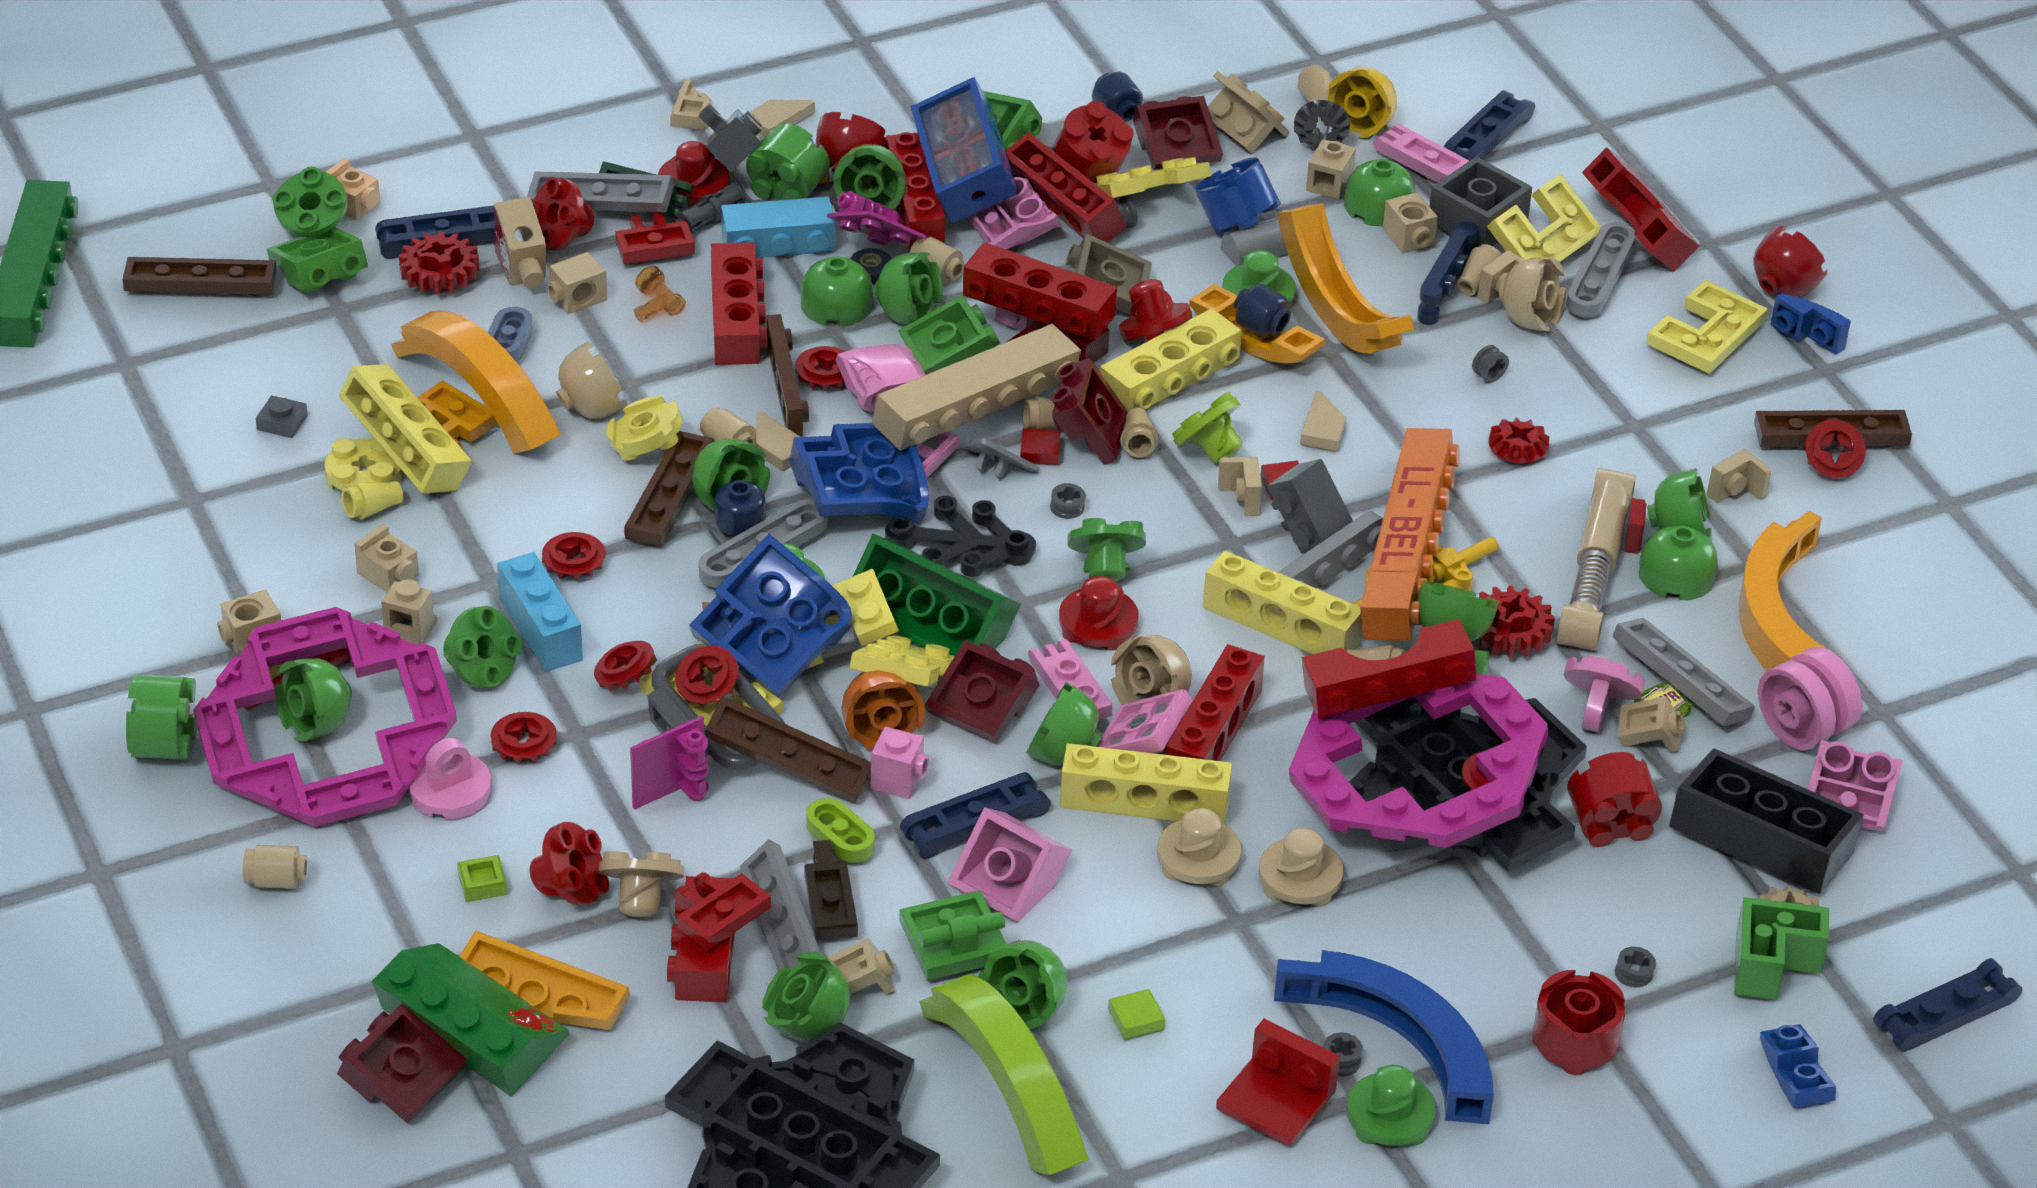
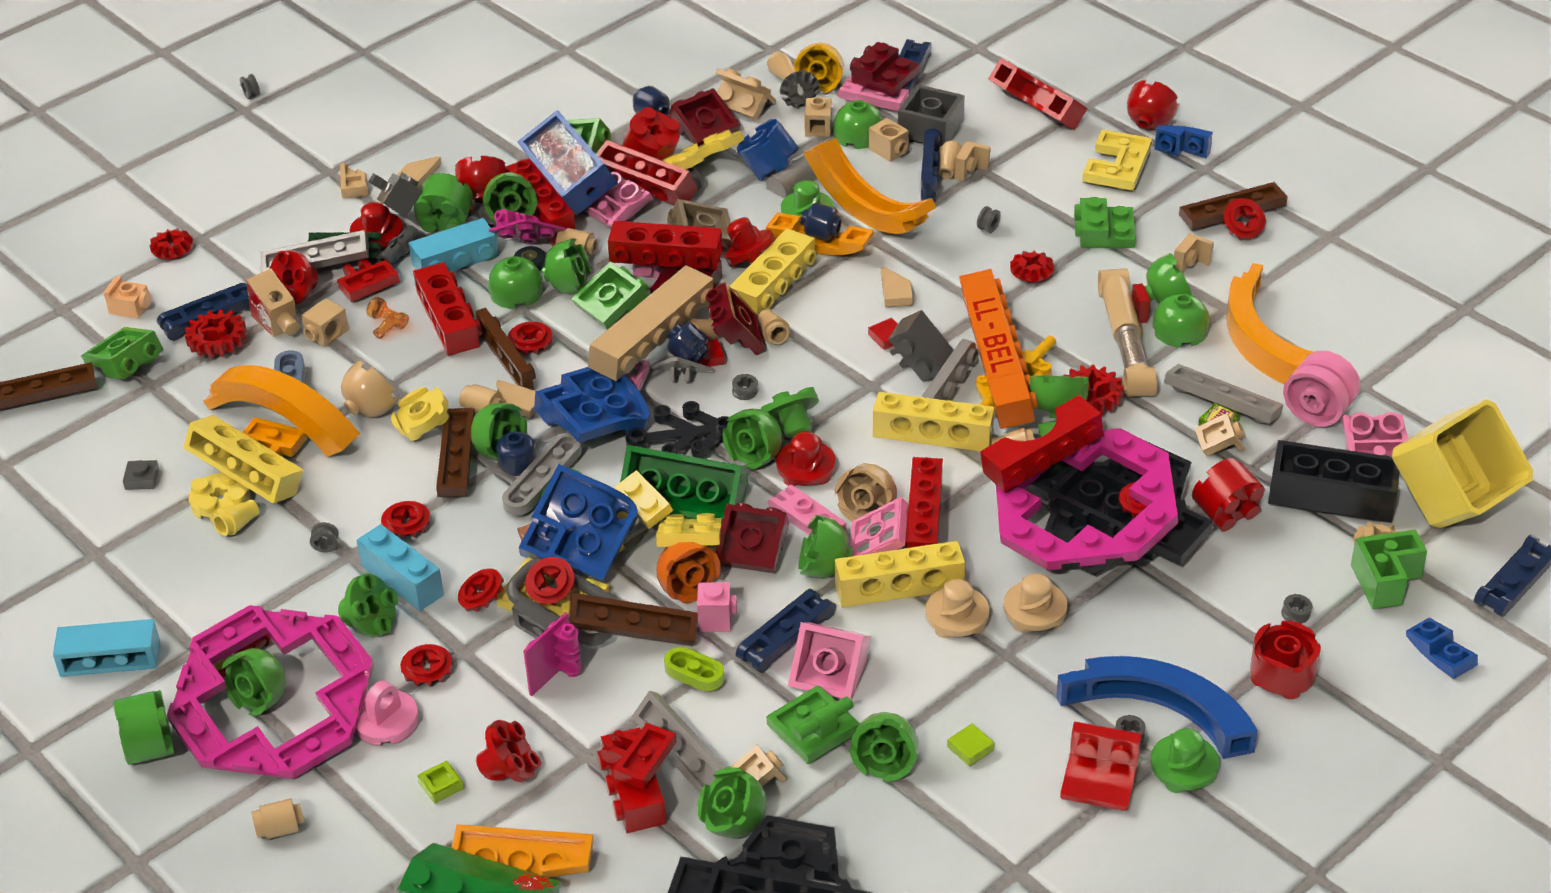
camera: 15 degrees left, 0 degrees up
(157, 613) = (106, 647): none -> medium azure brick
(243, 615) = (177, 633): tan brick -> none
(310, 202) = (103, 313): bright green plate -> none
(385, 558) = (266, 560): tan brick -> none
(409, 602) = (301, 586): tan brick -> none
(445, 137) = (161, 246): none -> red gear
(465, 541) = (321, 544): none -> dark grey bush
(640, 879) = (565, 749): tan plate -> none
(830, 895) = (709, 719): dark brown hinge -> none
(877, 370) = (573, 331): bright pink slope -> none
(1012, 425) = (687, 342): none -> dark blue head
(1017, 1067) = (913, 807): lime arch -> none
(1042, 567) = (752, 437): none -> bright green cylinder
(1212, 429) = (825, 311): lime plate -> none
(1244, 478) = (864, 339): tan bracket -> none
(1445, 124) = (883, 69): none -> dark red plate
(1534, 293) = (995, 166): tan cylinder -> none
(1569, 231) = (993, 126): light yellow plate -> none
(1601, 269) = (1029, 140): light grey plate -> none
(1604, 681) = (1178, 413): bright pink tile -> none
(1642, 409) = (1103, 225): none -> bright green plate
(1960, 837) = (1462, 464): none -> light yellow plate

